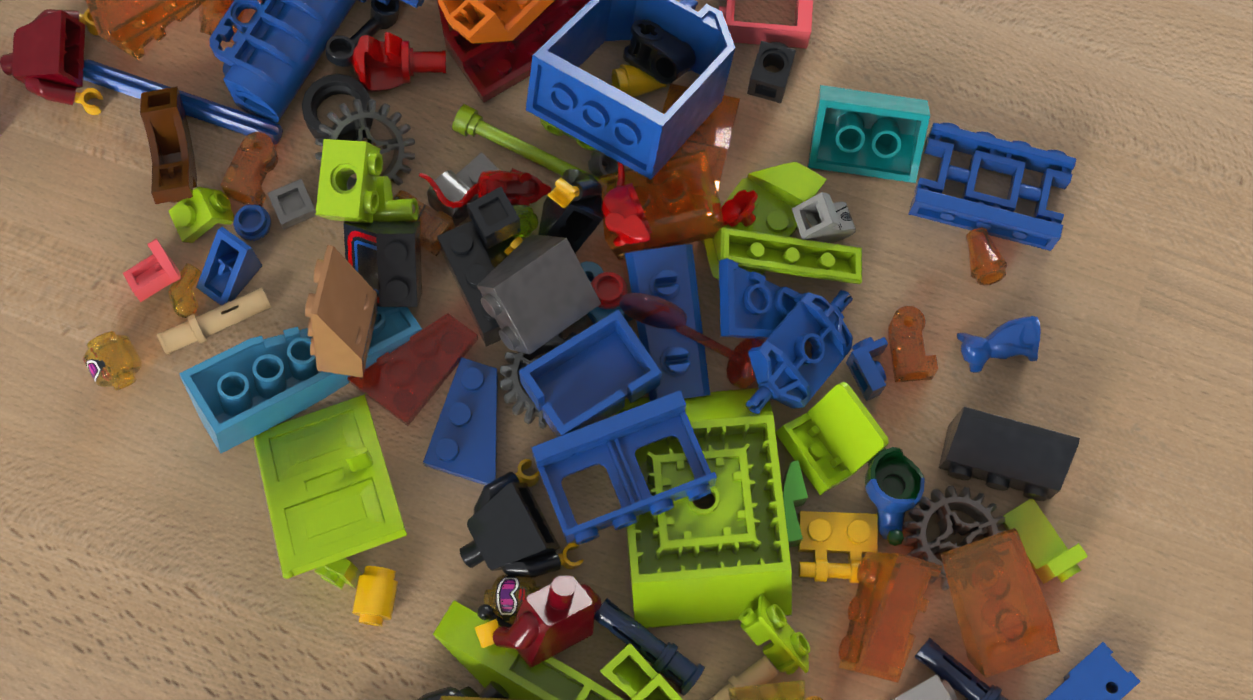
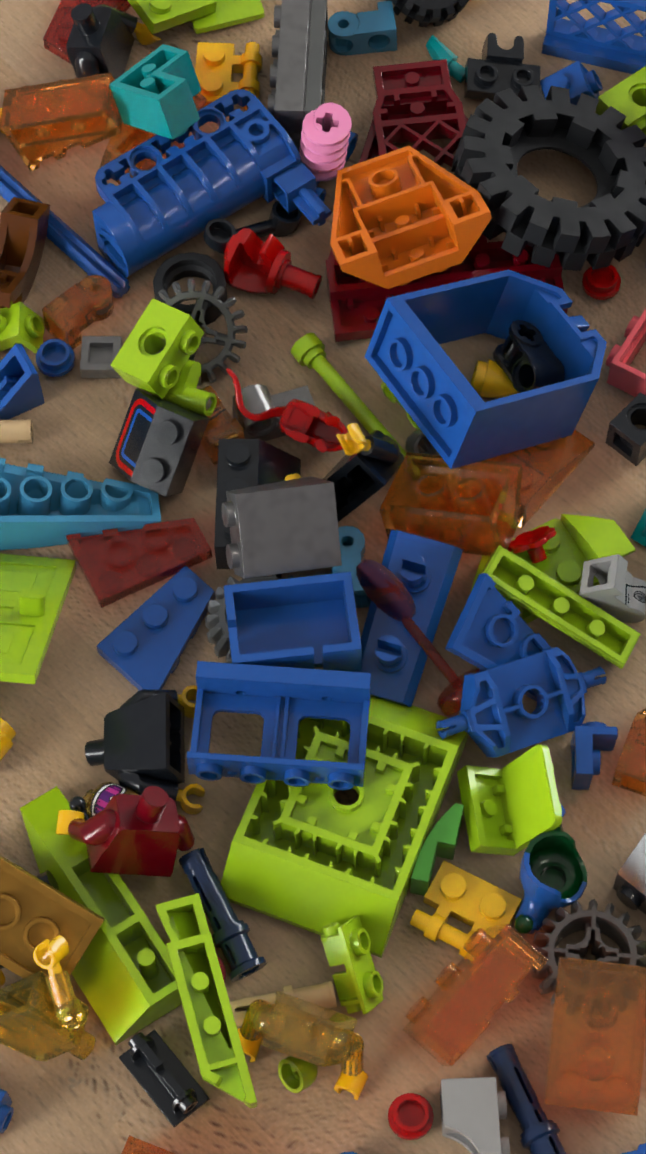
camera: 30 degrees right, 10 degrees down
(340, 316) = (84, 465): medium nougat slope -> none
(494, 217) = (279, 441): black brick -> none
(528, 220) = (308, 461): clear neon green plate -> none
(609, 289) = (354, 553): red plate -> none
(625, 213) = (406, 488): red animal -> none

